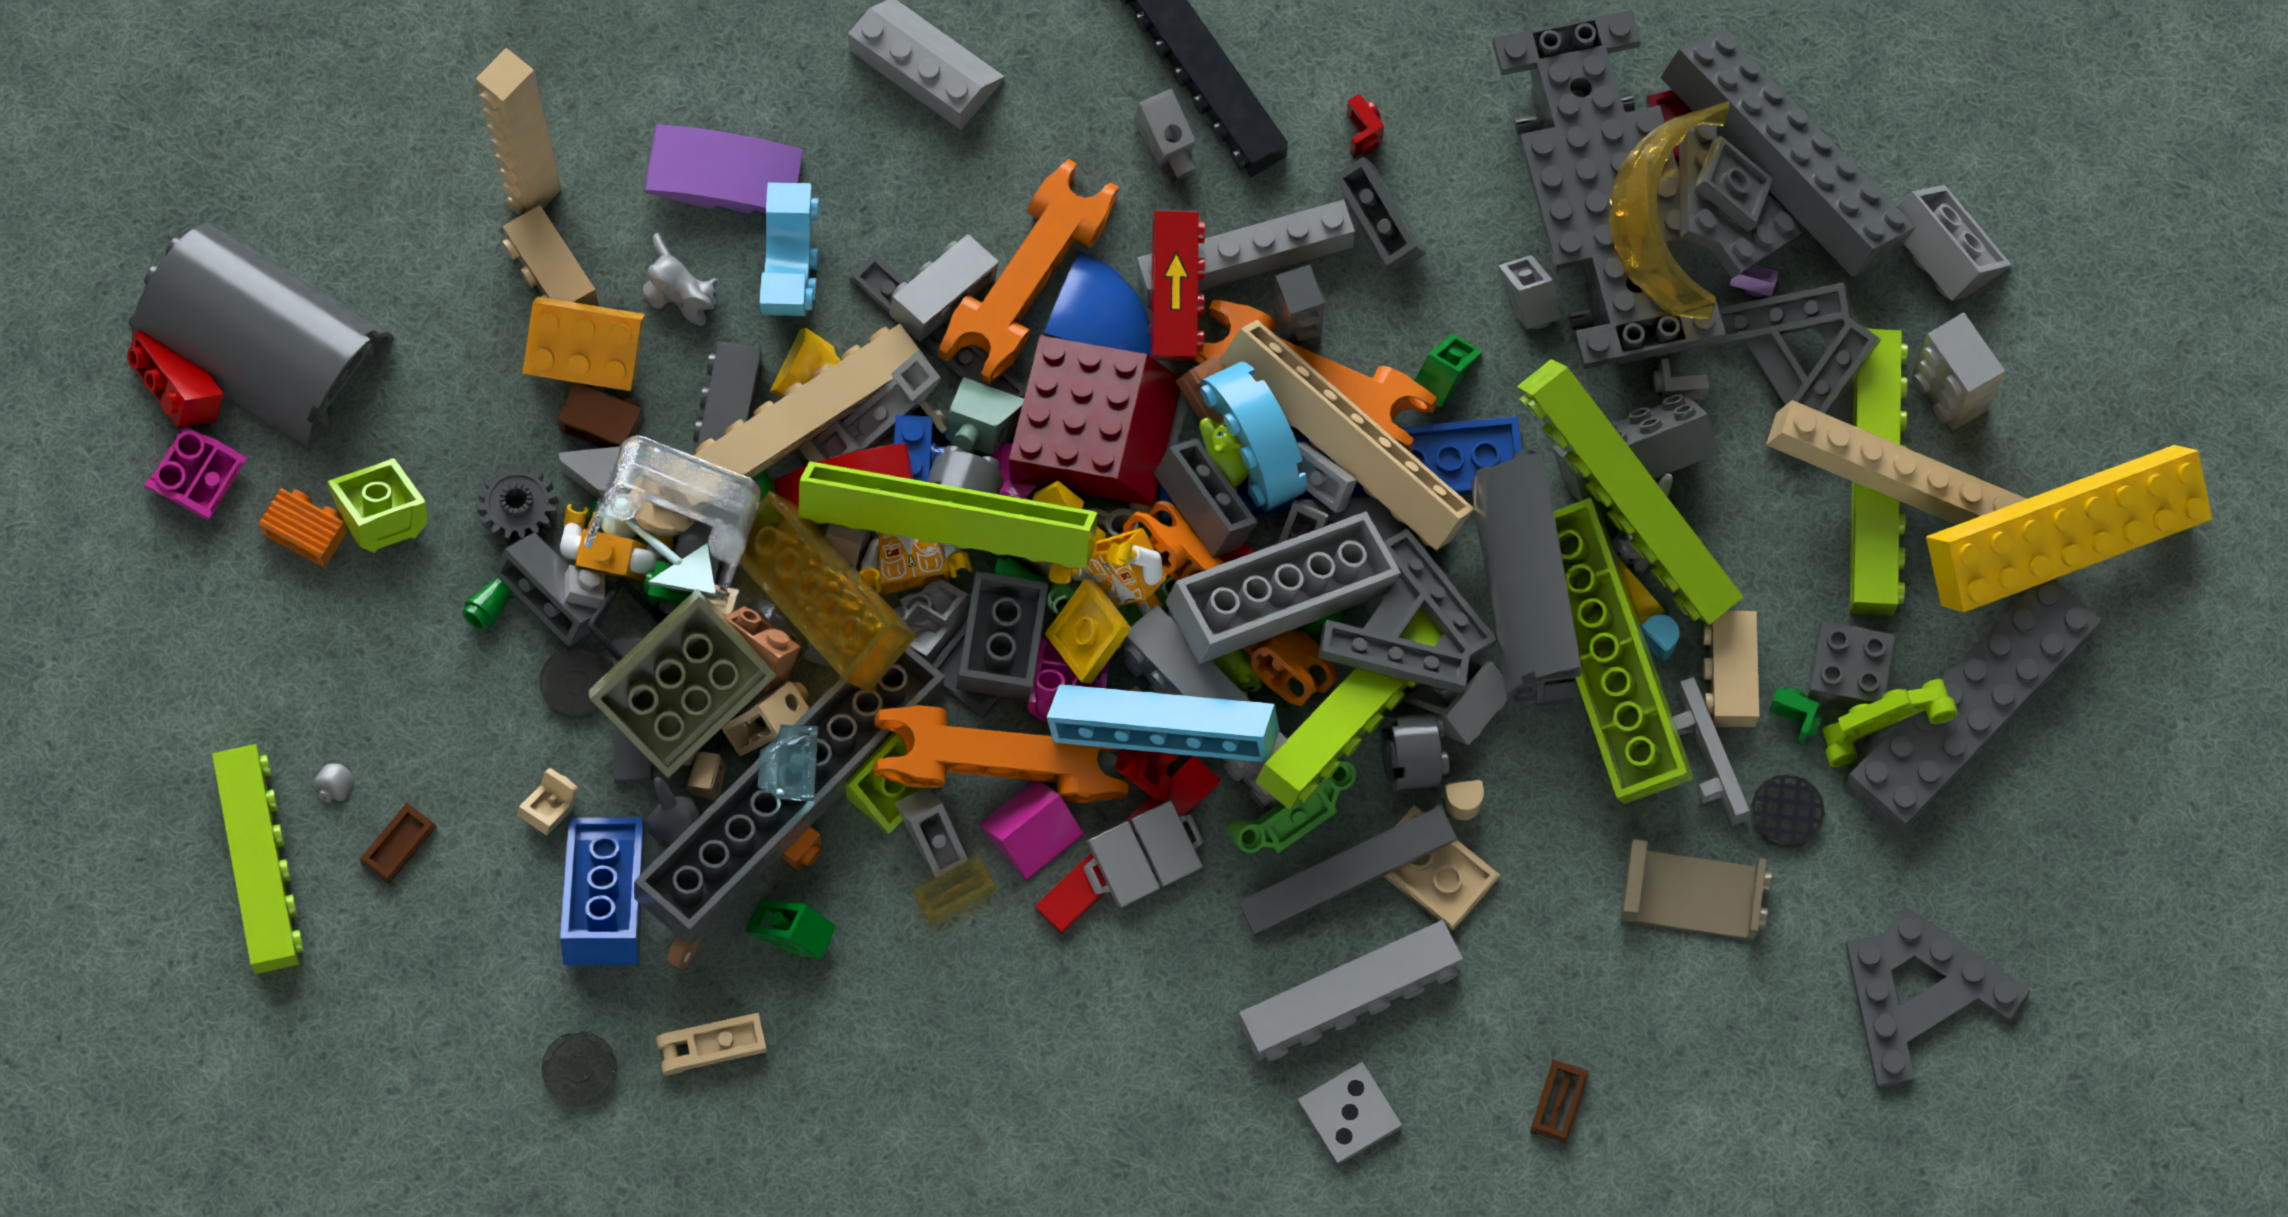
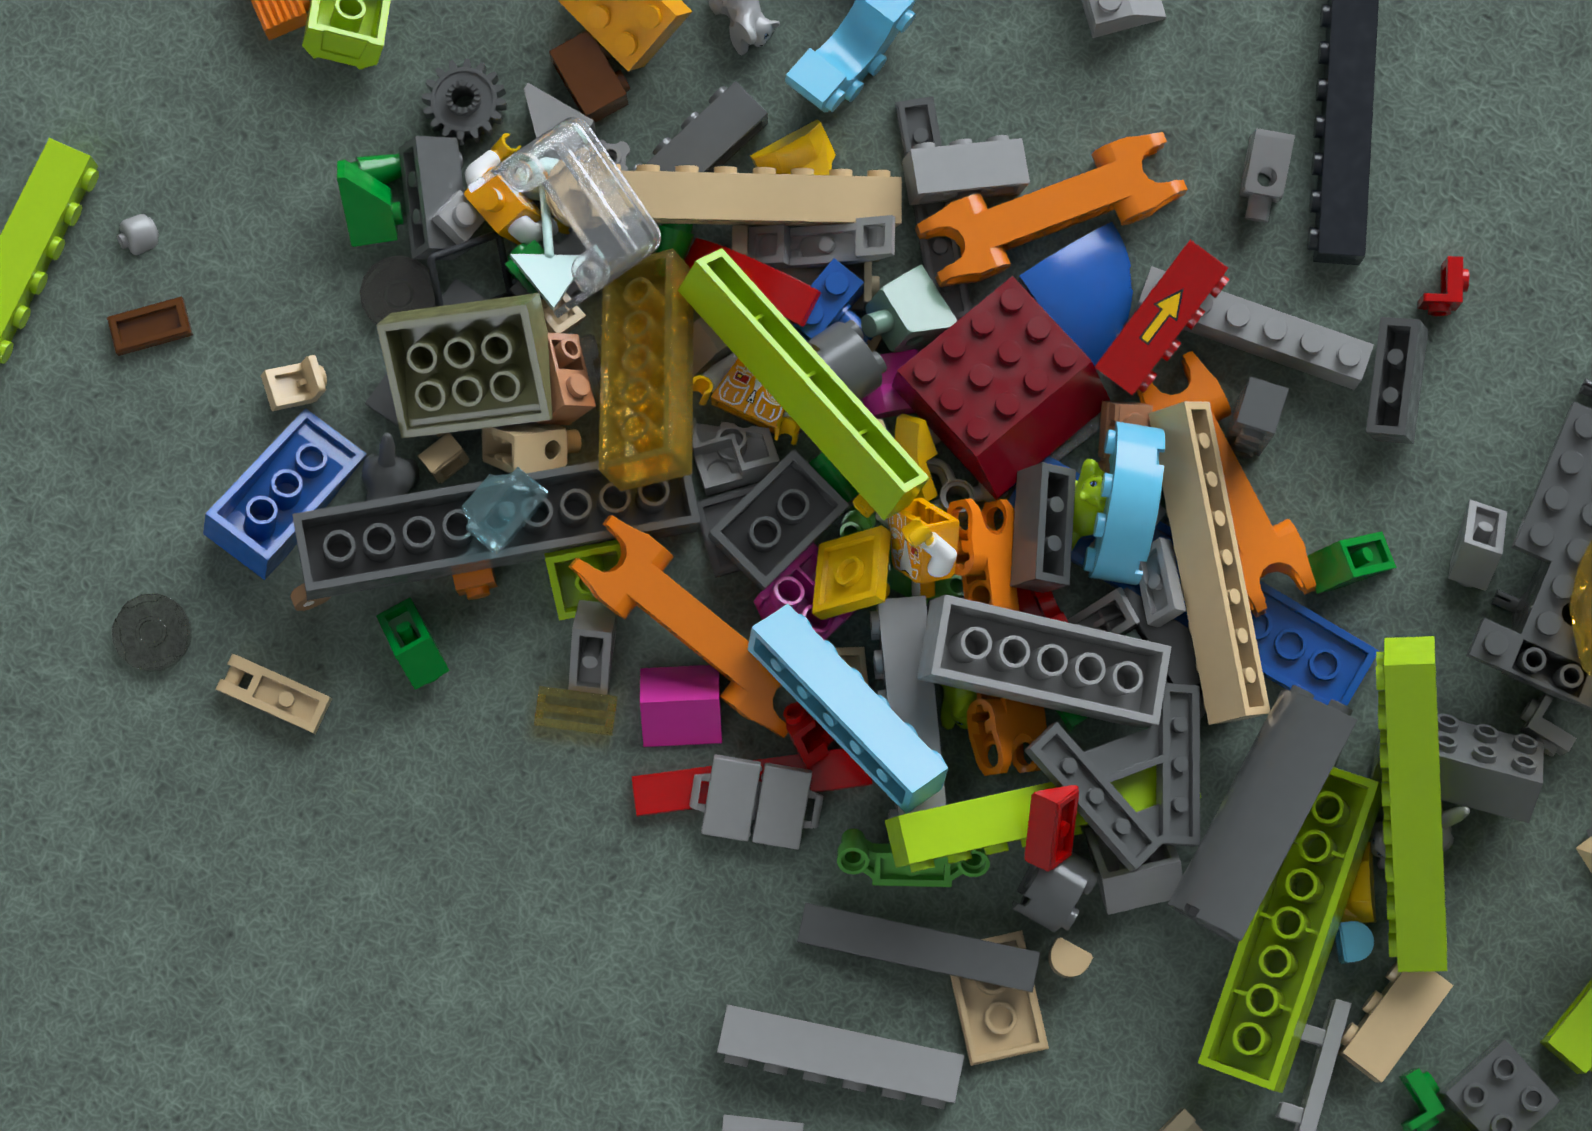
camera: 40 degrees right, 10 degrees up
(505, 631) = (367, 206): none -> green slope
(1380, 697) = (1051, 826): none -> red slope

